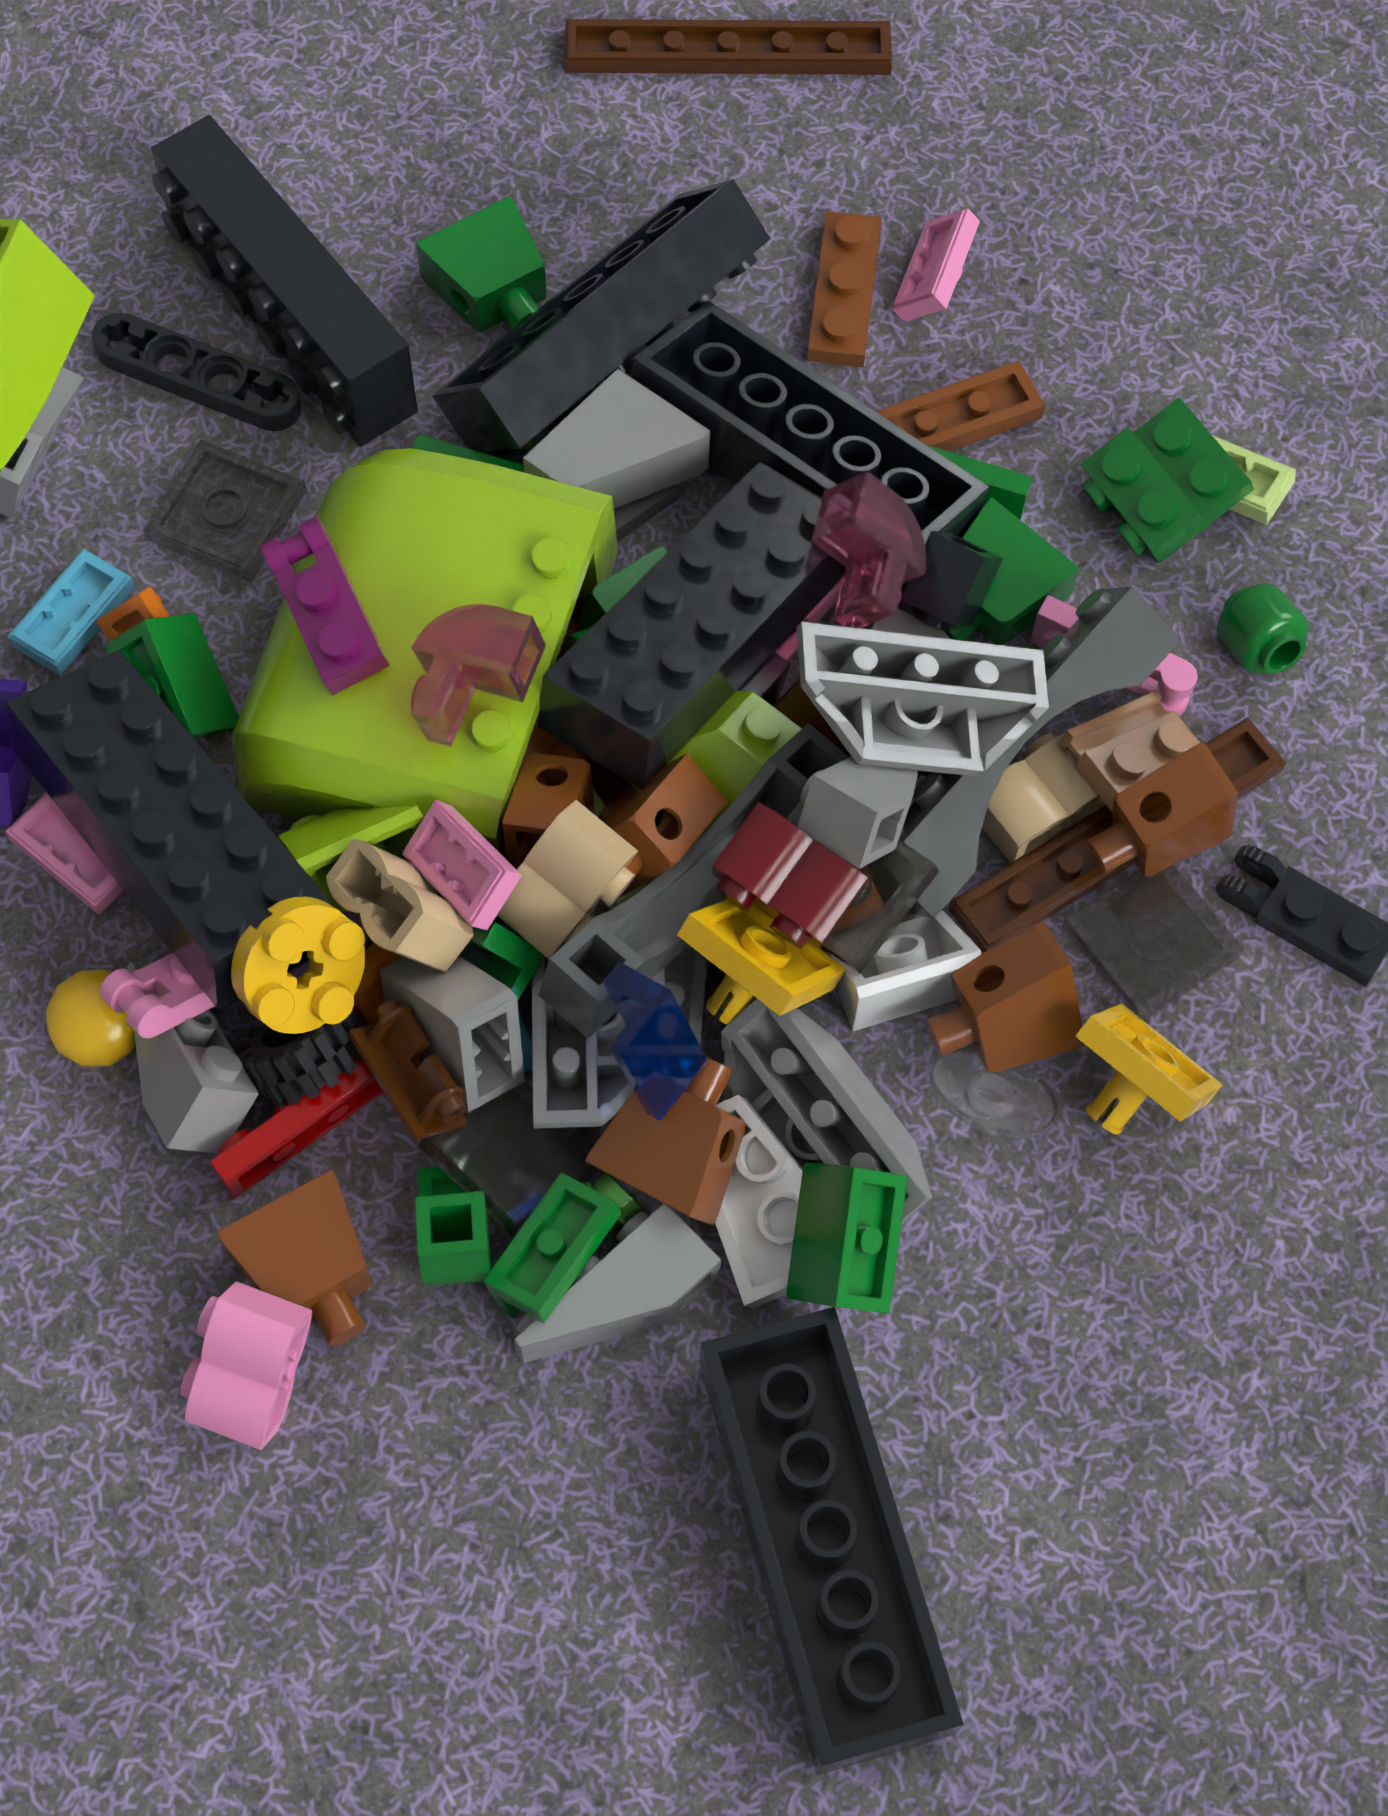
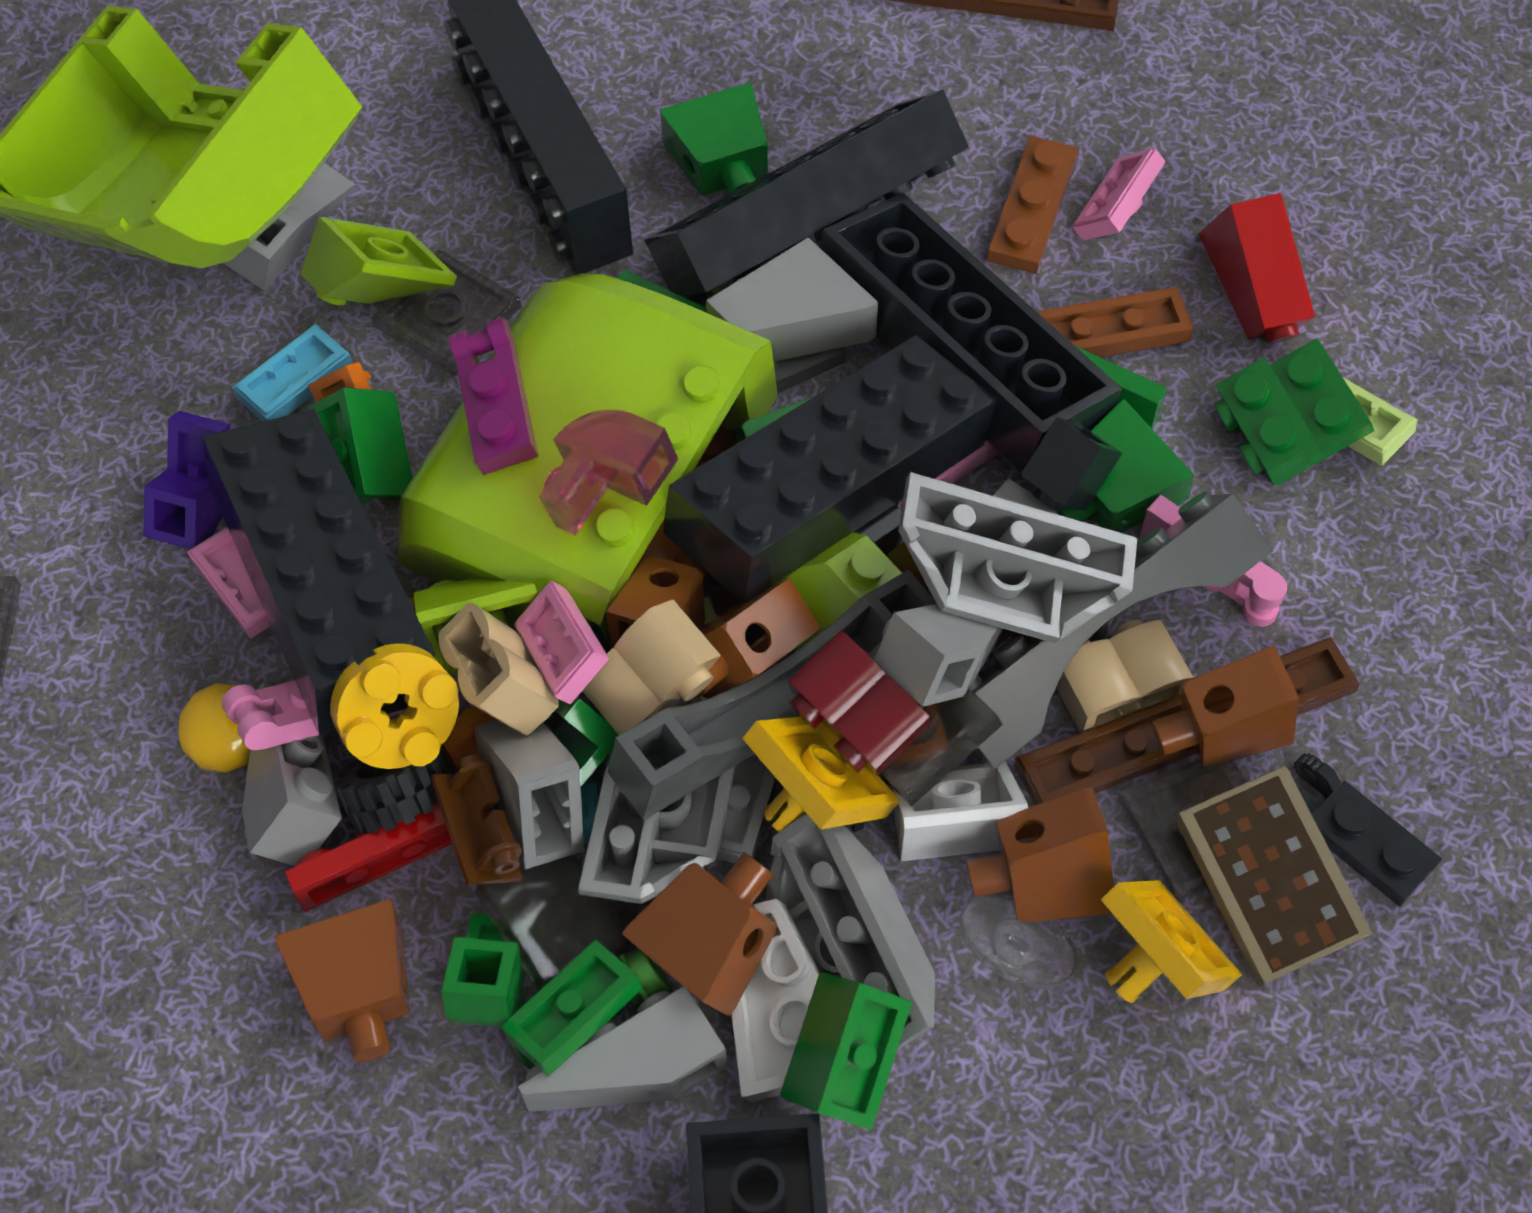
camera: 15 degrees right, 5 degrees down
(130, 469) = (369, 263): none -> lime slope
(200, 367) = (455, 188): black beam -> none
(245, 1364) = (271, 1062): bright pink brick -> none
(657, 1044) = (696, 832): clear blue panel -> none
(876, 541) = (1004, 416): clear pink brick -> none
(1102, 327) = (1260, 268): none -> red slope
(1127, 744) = (1206, 639): medium nougat plate -> none
(1235, 978) = (1272, 875): none -> tile
(1263, 629) = (1360, 558): green head -> none

